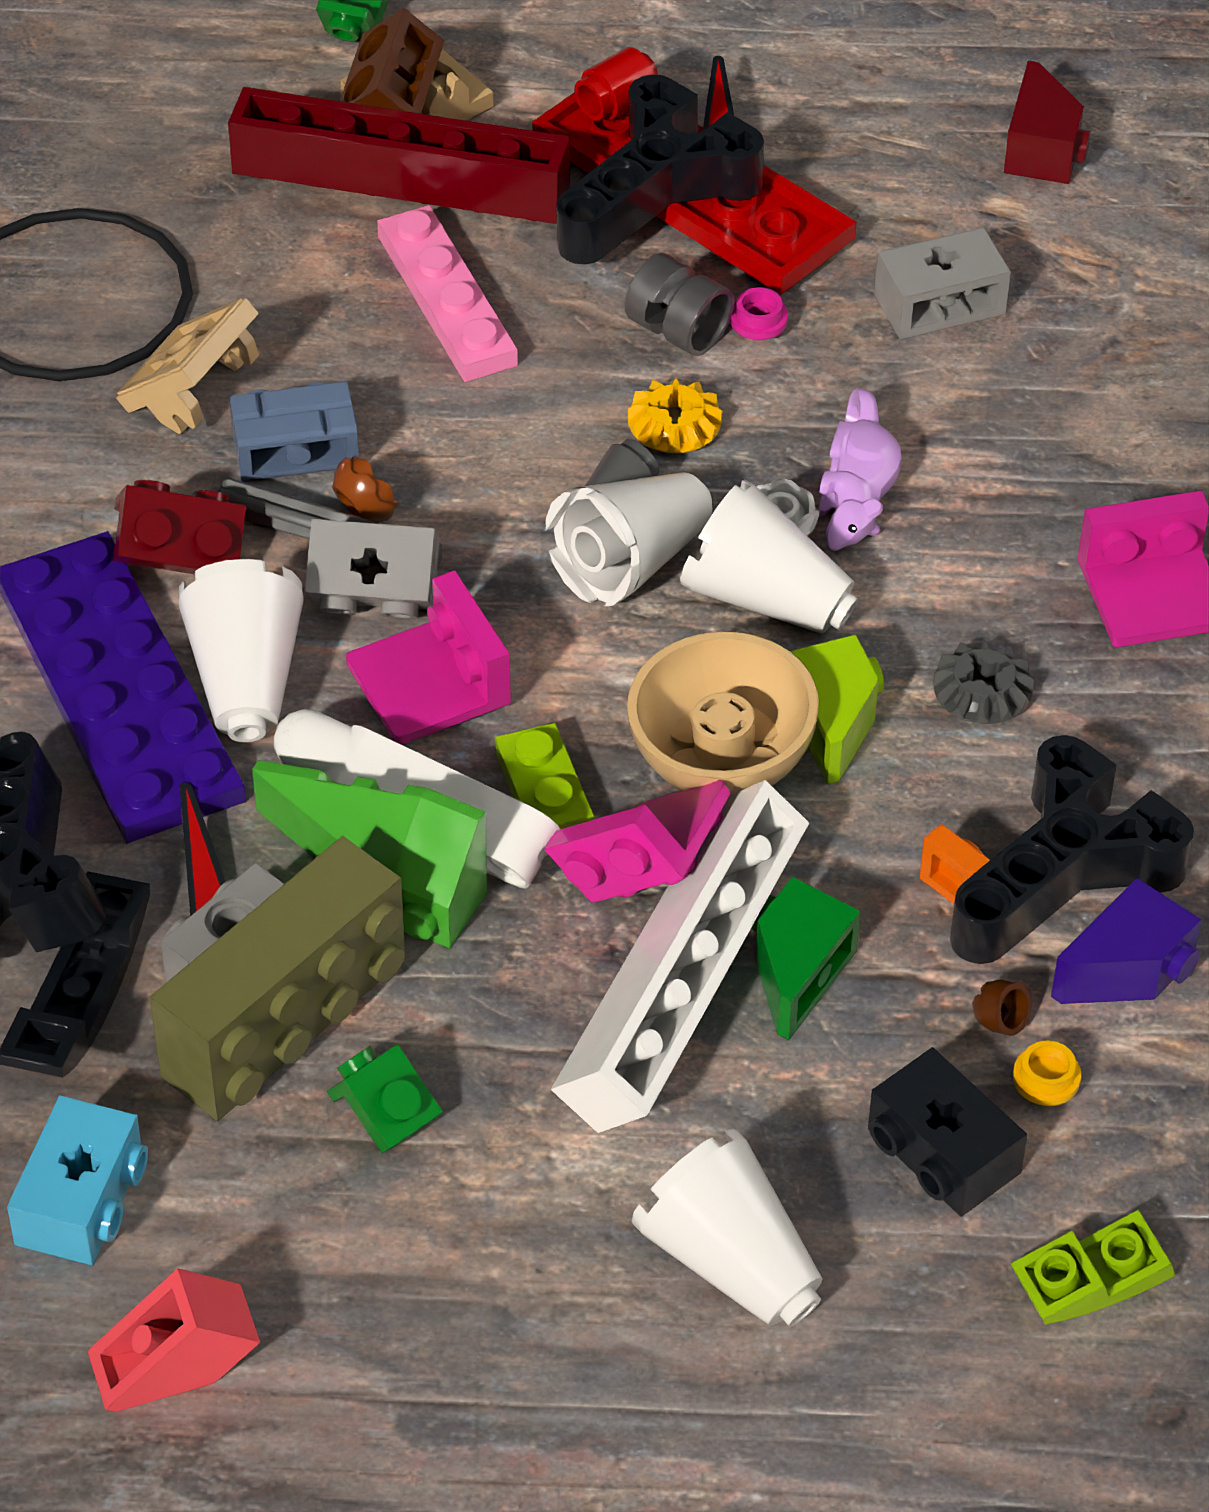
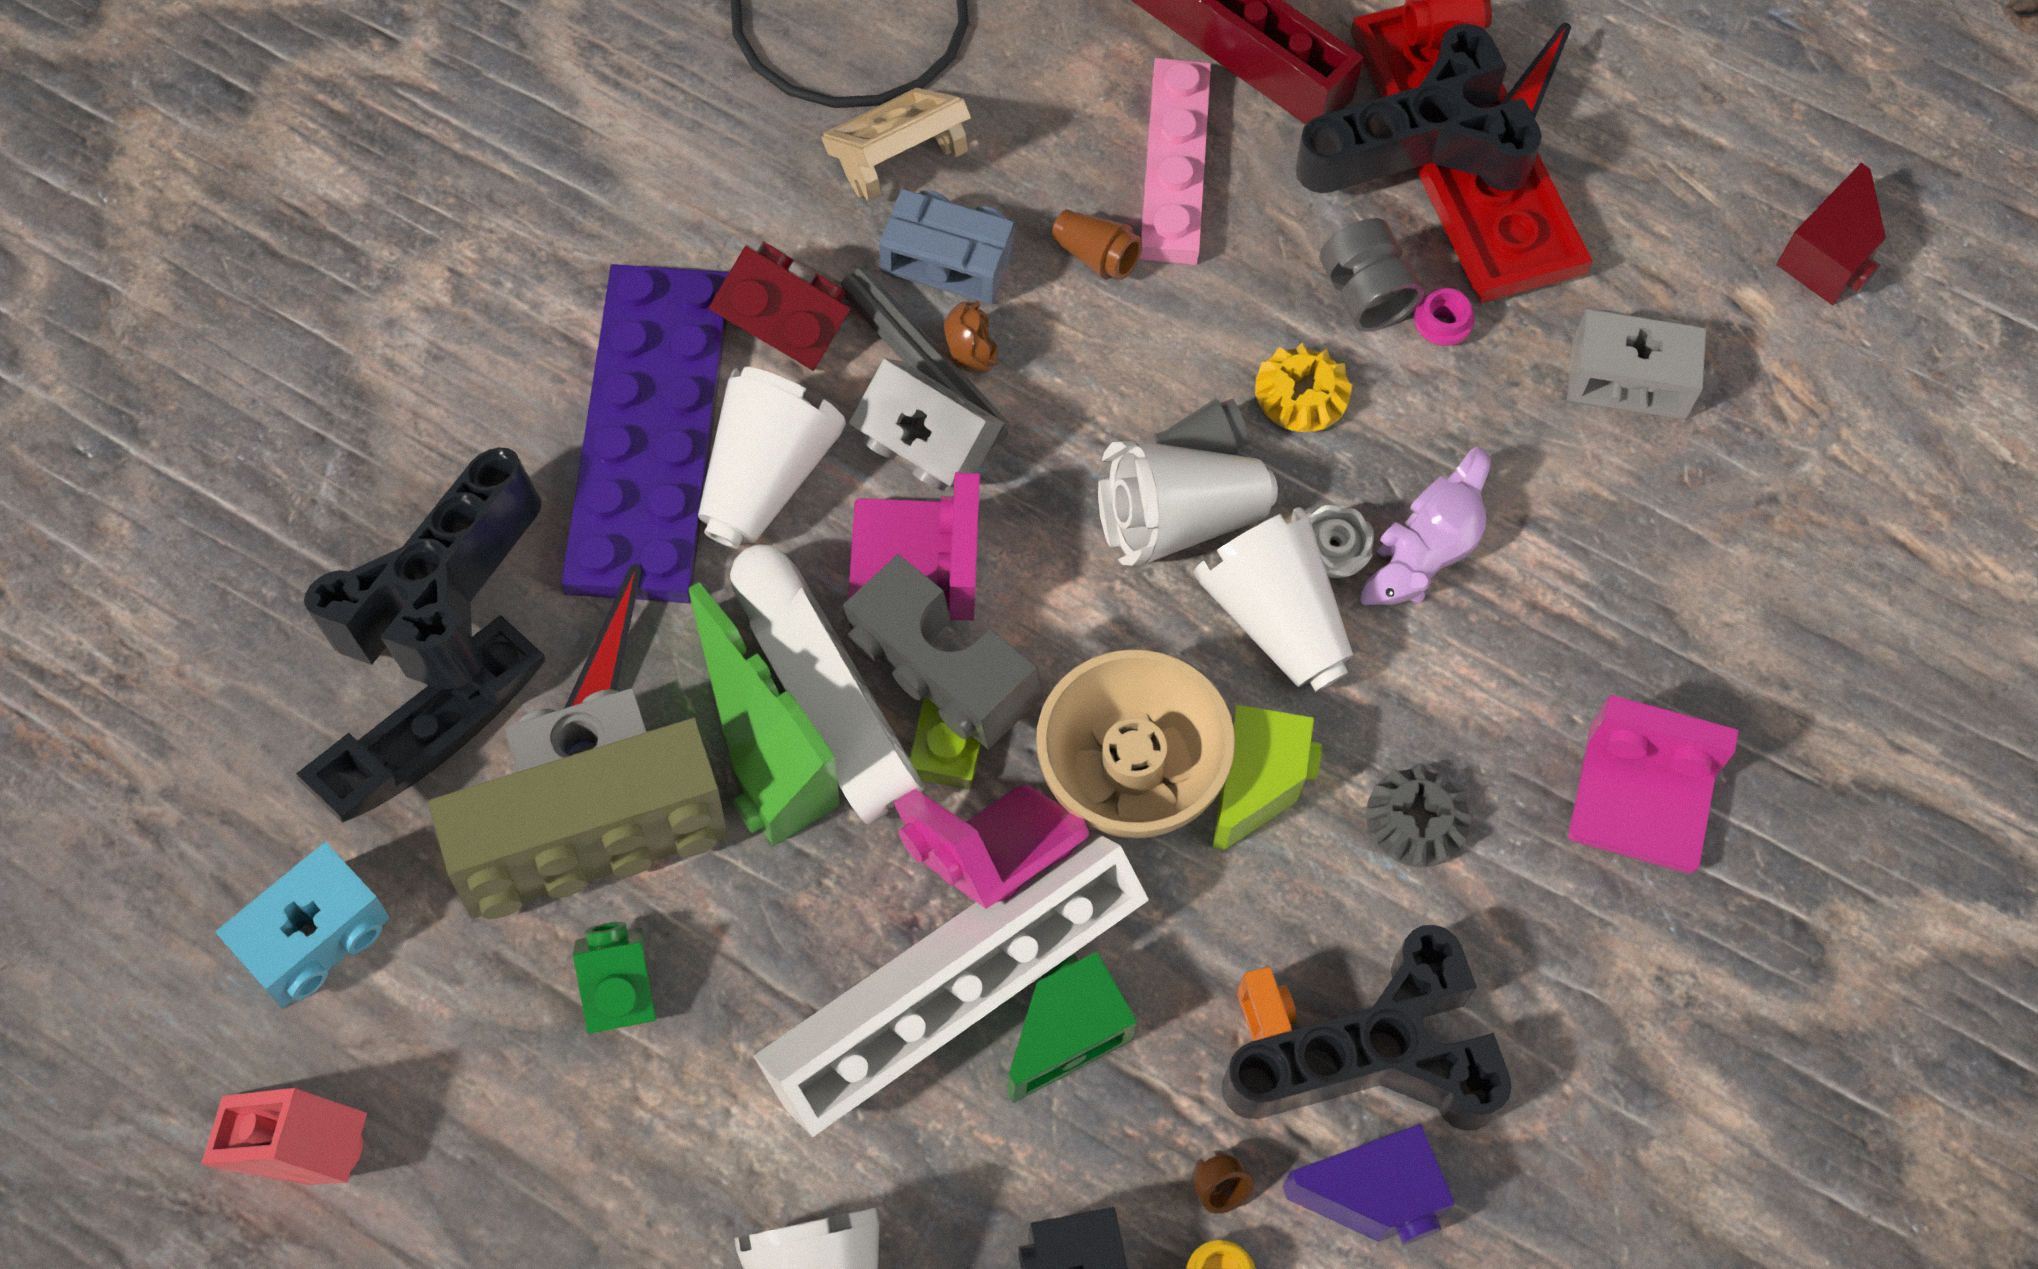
camera: 25 degrees right, 15 degrees up
(424, 377) = (1099, 243): none -> dark orange cone
(555, 733) = (976, 688): none -> dark grey arch

